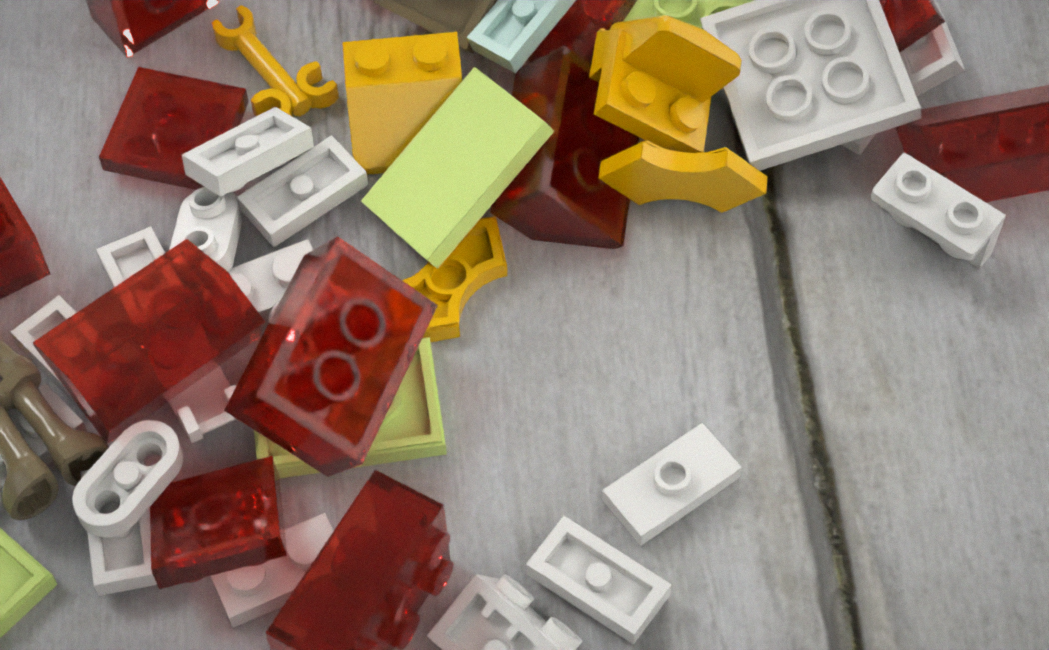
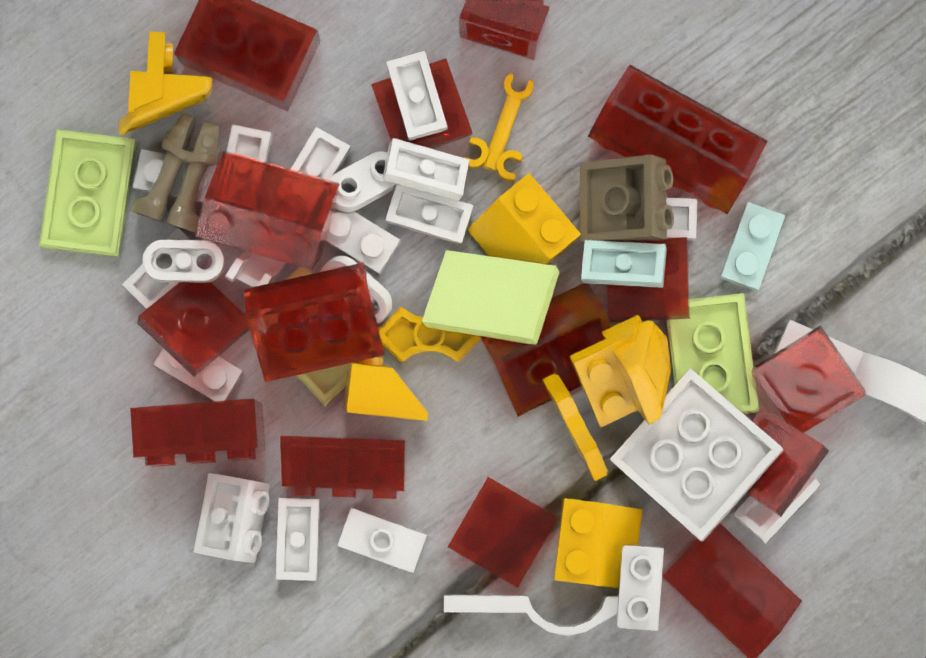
camera: 55 degrees right, 25 degrees up
(154, 107) = (416, 95): none -> white plate
(478, 356) = (379, 391): none -> yellow slope
(538, 449) = (343, 466): none -> clear red slope
(759, 336) = (502, 532): none -> clear red plate
(839, 248) = (593, 541): none -> yellow slope
(880, 360) = (521, 604): none -> white piece

